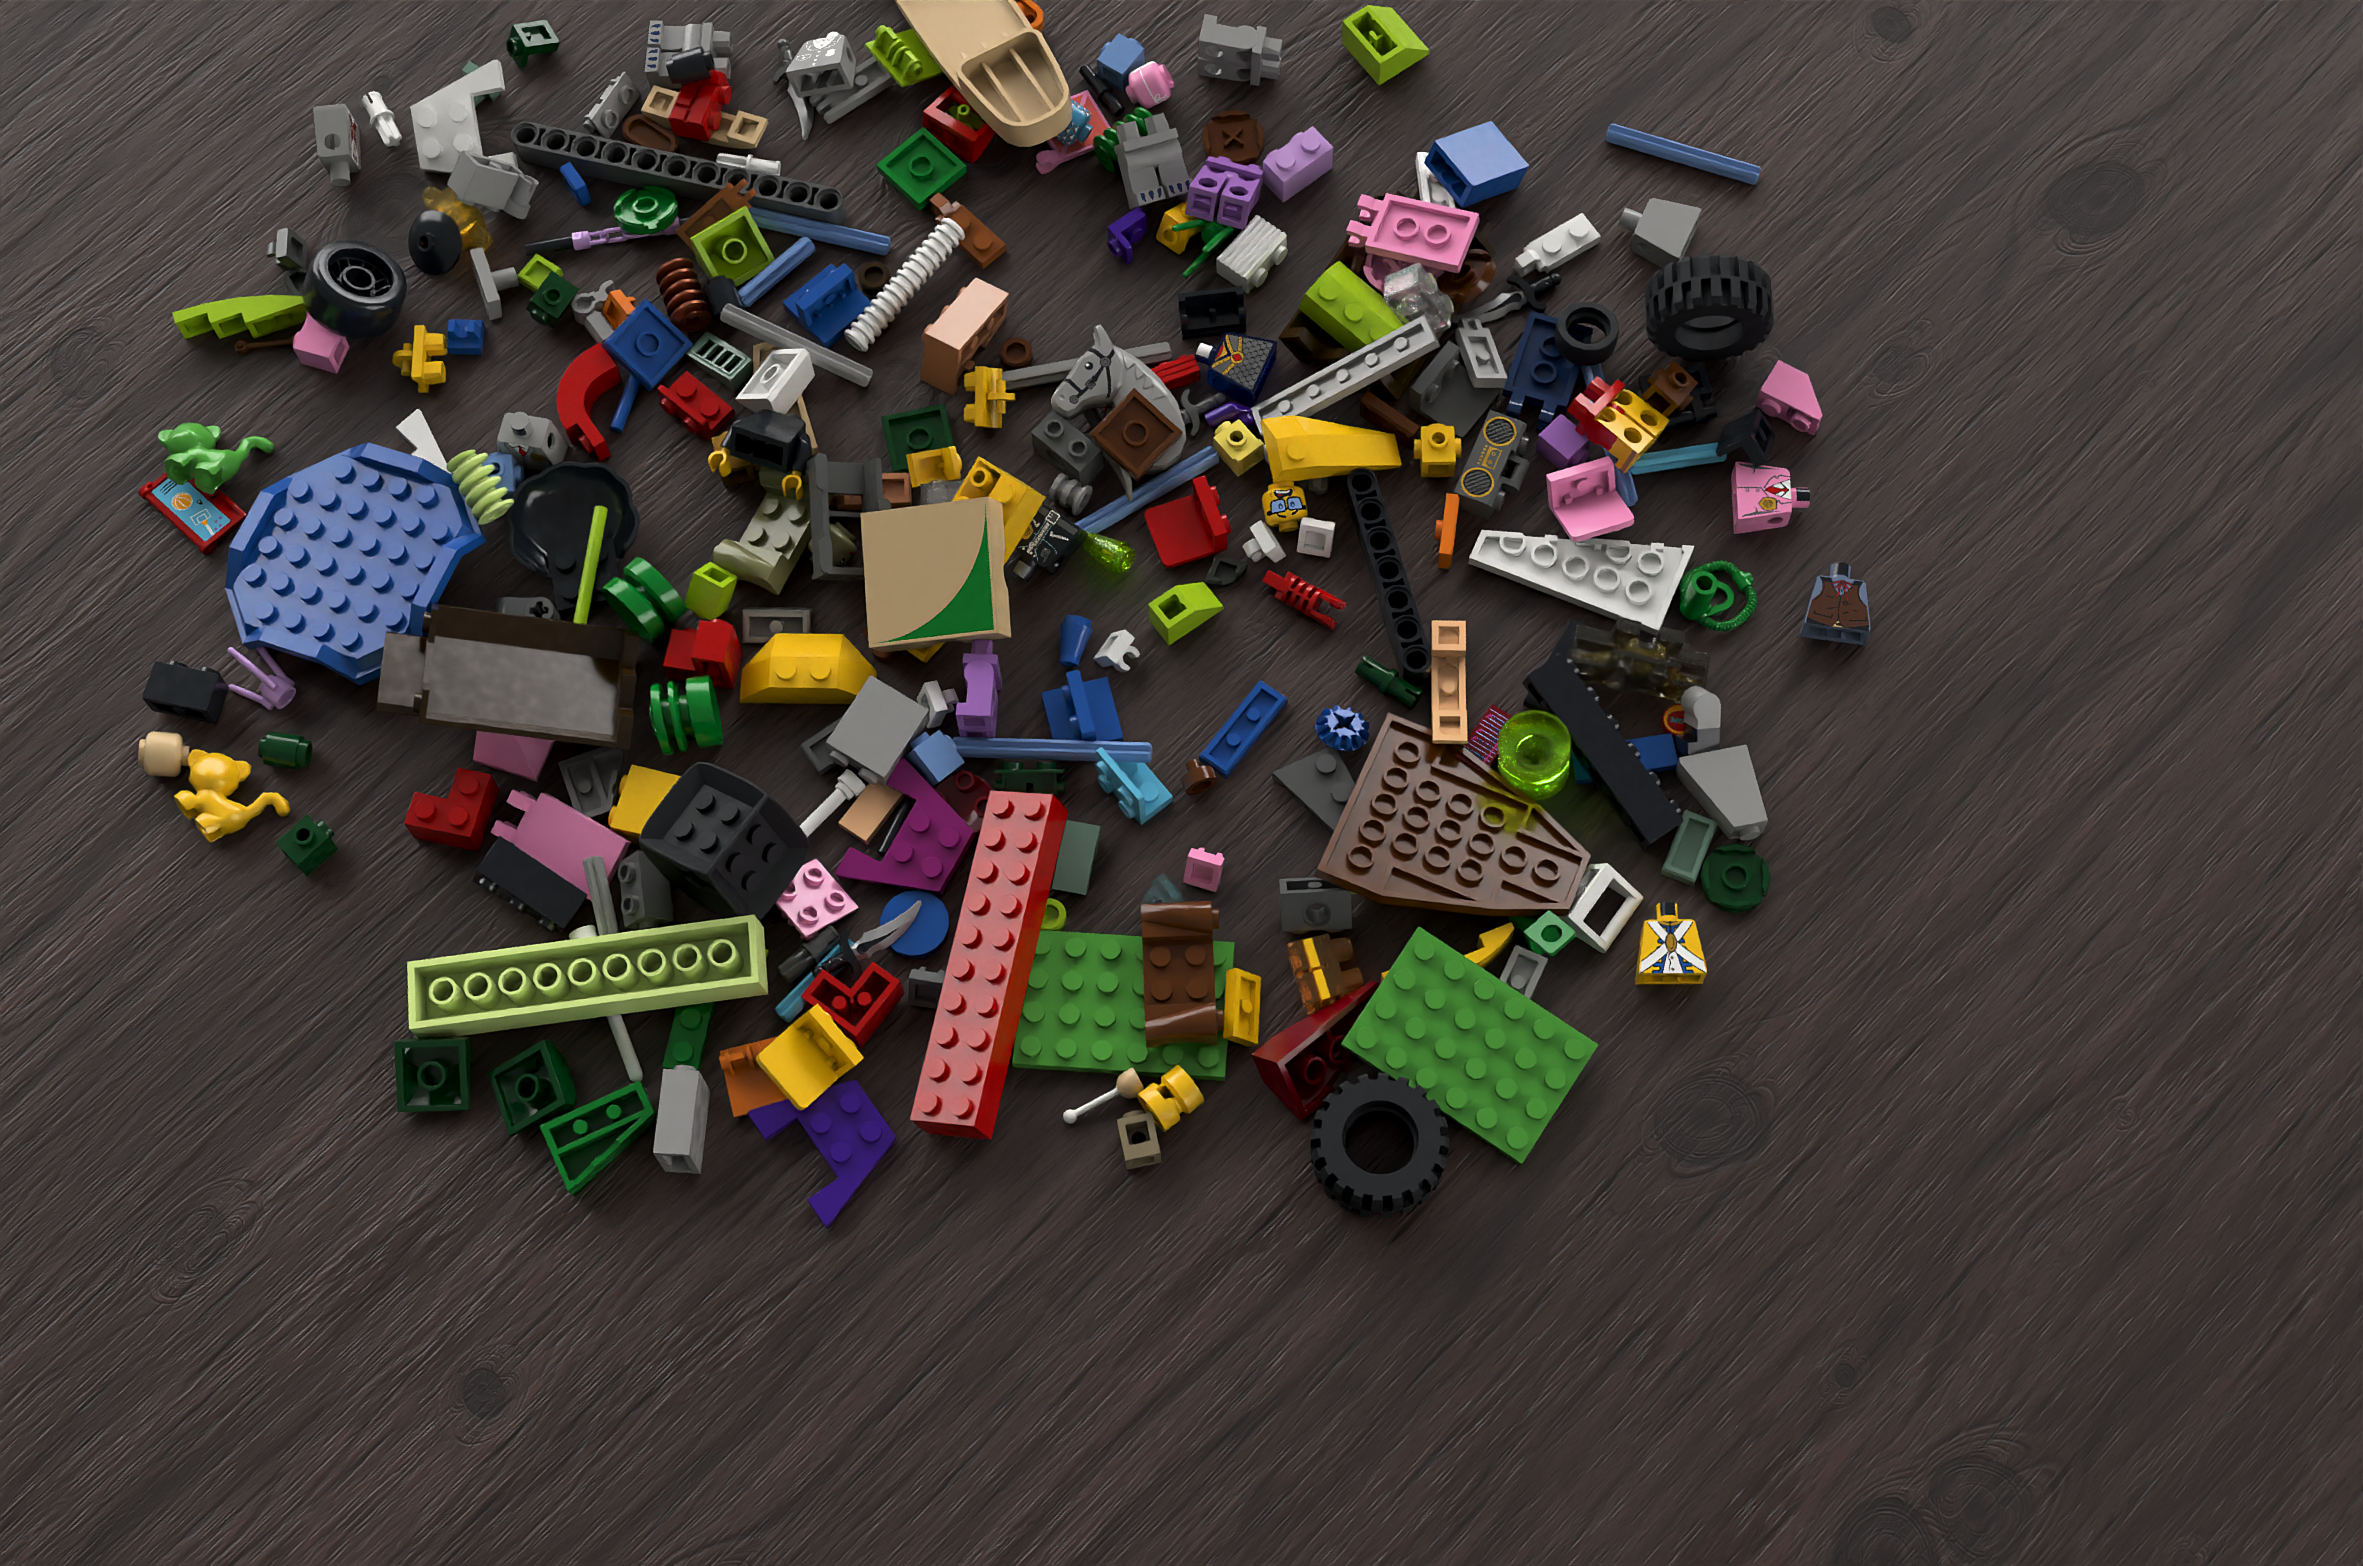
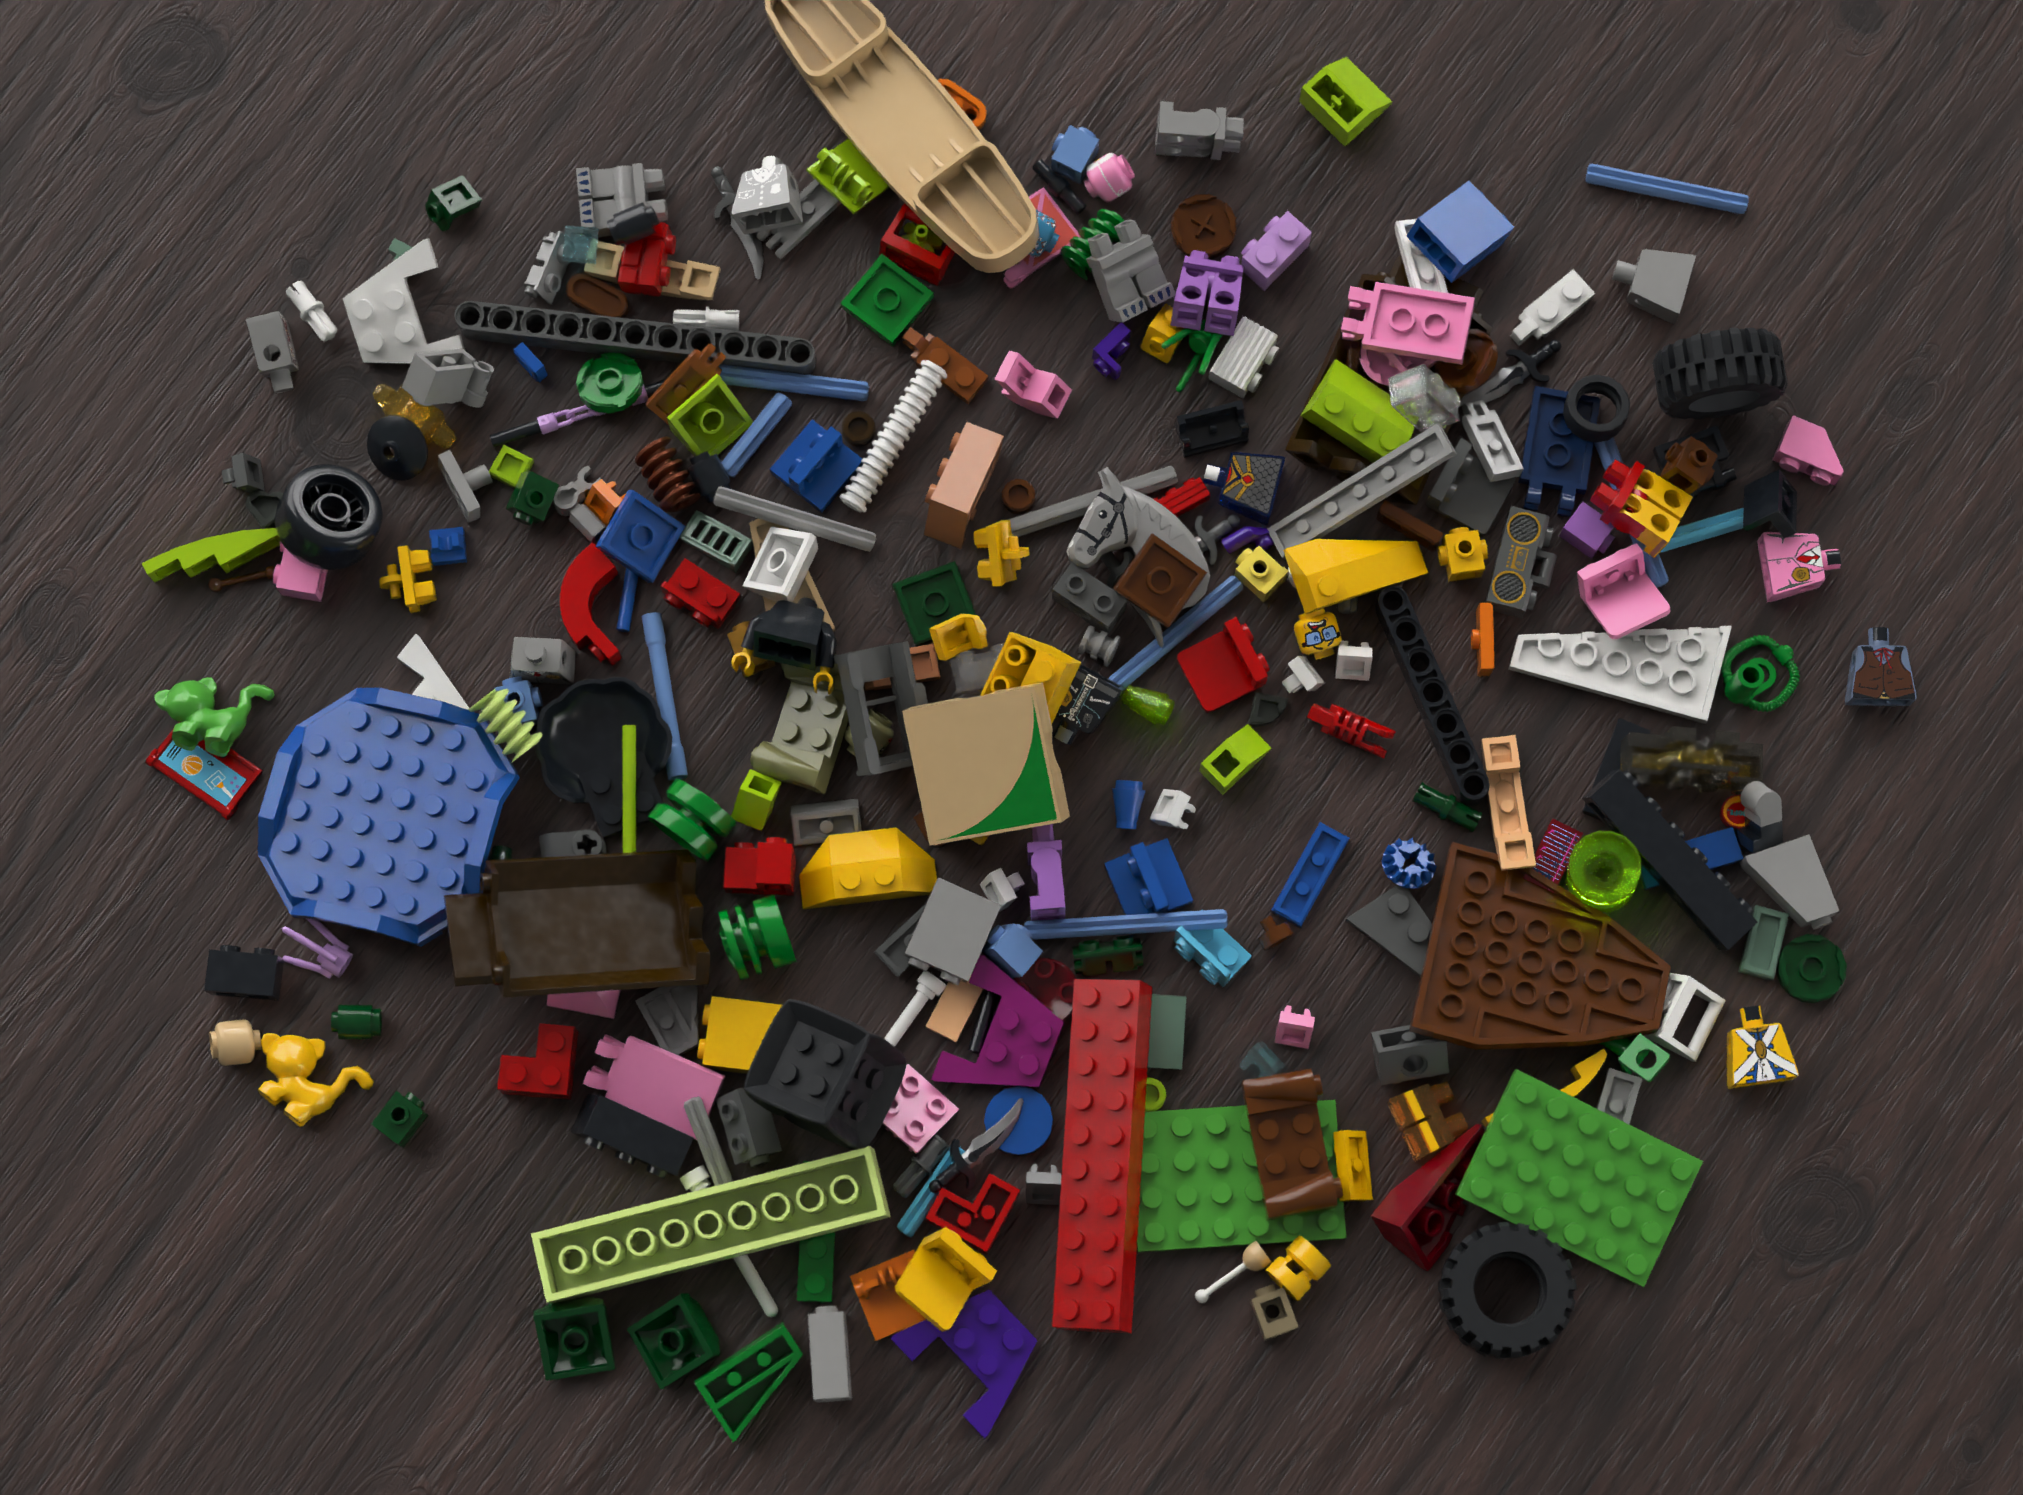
camera: 10 degrees left, 10 degrees up
(641, 85) = (580, 244): none -> clear light blue tile
(643, 486) = (656, 642): none -> medium blue piece
(1043, 258) = (1031, 387): none -> bright pink brick

